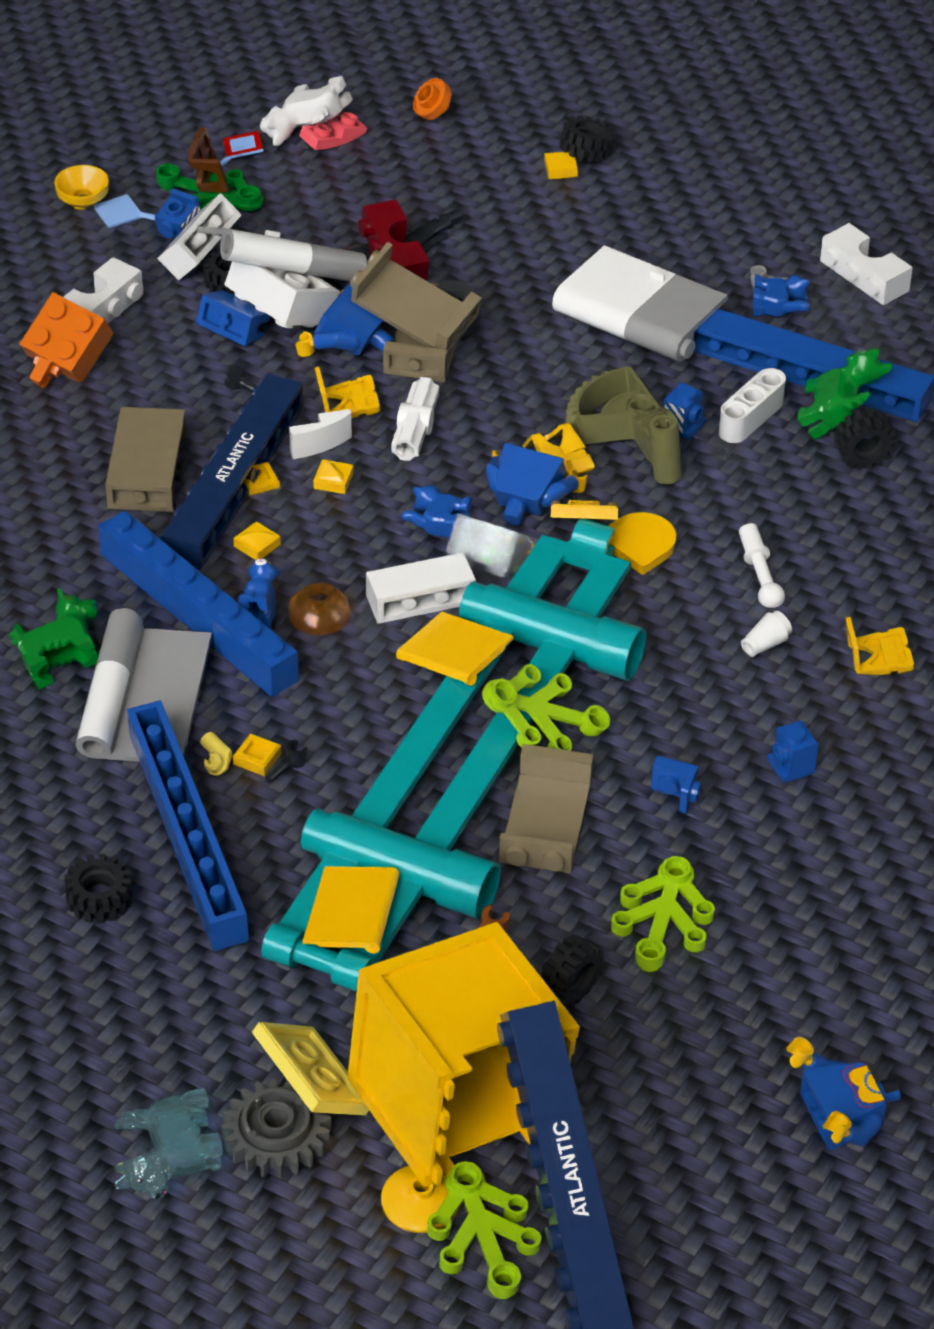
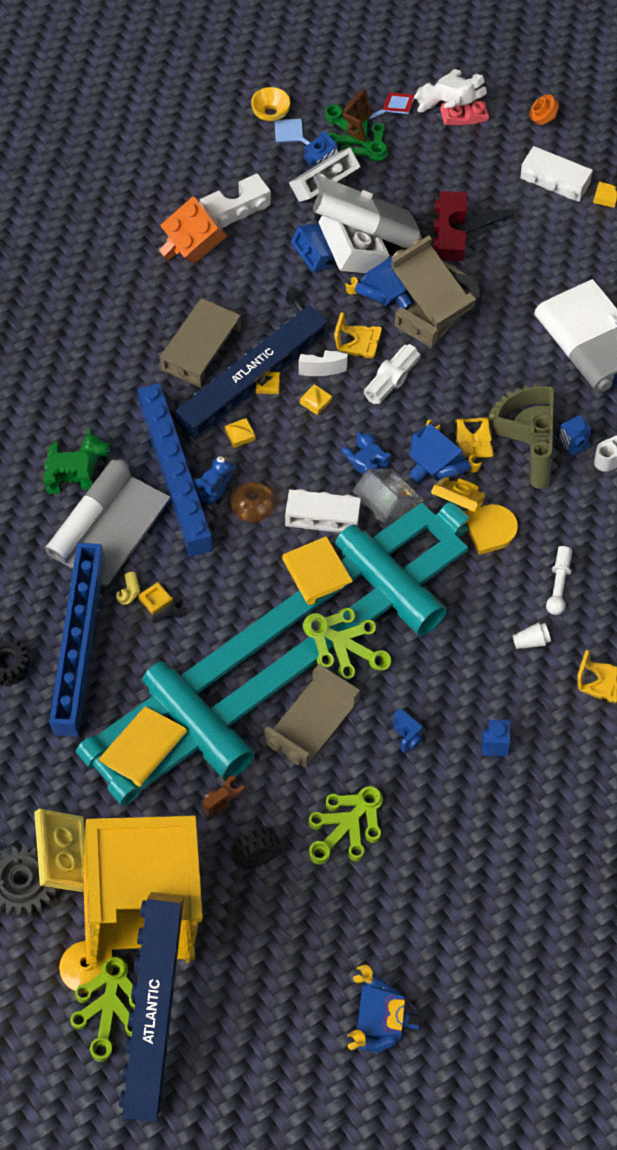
camera: 25 degrees right, 15 degrees up
(487, 159) = (556, 174): none -> white brick

